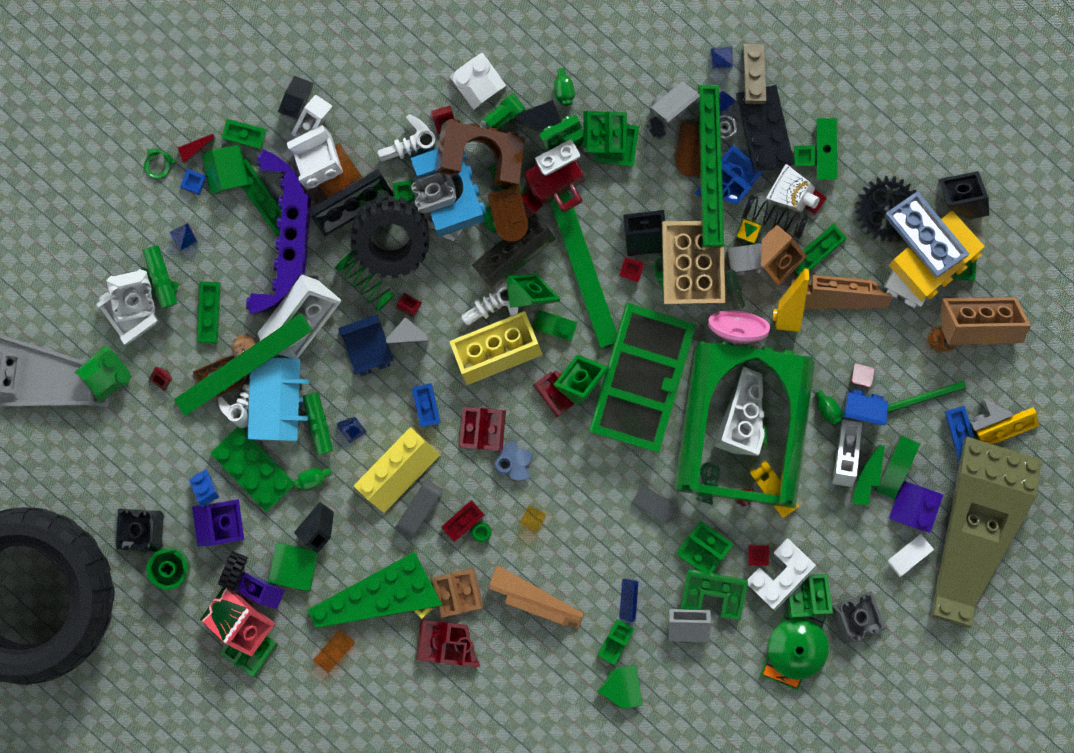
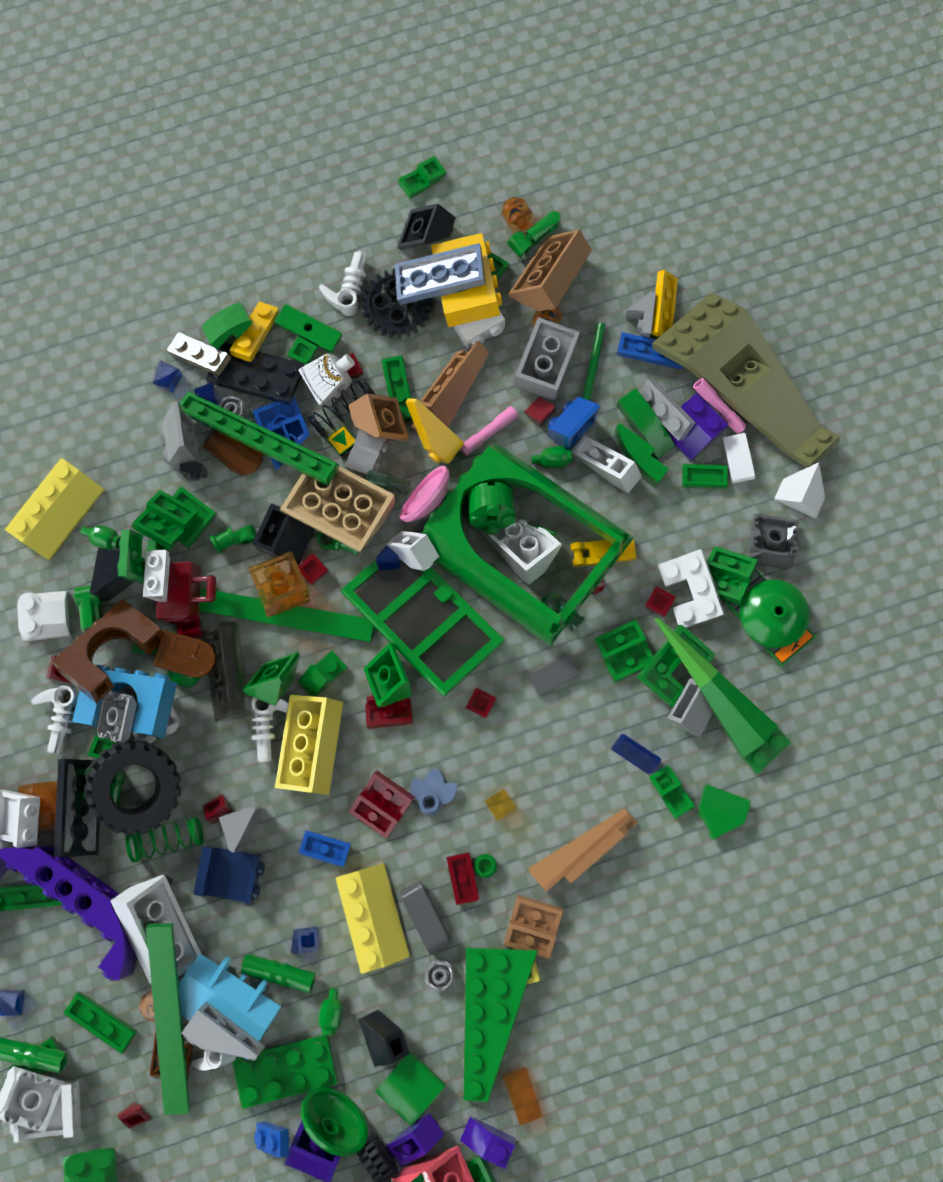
camera: 55 degrees left, 10 degrees down
(242, 525) = (334, 1121): none -> green dish
(254, 404) = (217, 1033): none -> light grey slope
(289, 643) = (488, 1142): none -> dark purple slope
(388, 548) = (442, 983): none -> light grey plate
(445, 644) = (579, 970): dark red slope -> none
(564, 37) = (55, 509): none -> light yellow slope
(601, 460) = (480, 703): none -> dark red plate
(604, 253) = (279, 584): none -> clear orange slope
(618, 188) = (228, 538): none -> green connector
(671, 327) = (388, 559): none -> clear blue slope
(690, 341) = (414, 549): none -> white slope
(696, 674) = (748, 728): none -> green plate
(756, 385) = (491, 507): none -> green brick
(791, 82) = (227, 321): none -> green slope
(799, 107) = (251, 340): none -> yellow plate
(833, 348) = (498, 423): none -> bright pink piece
(881, 536) = (704, 476): none -> green tile
(885, 162) = (350, 289): none -> white piece
(907, 358) = (546, 358): none -> light grey slope
(911, 620) = (803, 491): none -> white slope
(917, 477) = (667, 410): none -> light grey plate
(945, 508) = (717, 403): none -> bright pink piece
(997, 282) = (523, 243): none -> green piece
(1011, 164) = (422, 178): none -> green slope
(1021, 262) = (516, 213): none -> clear orange head

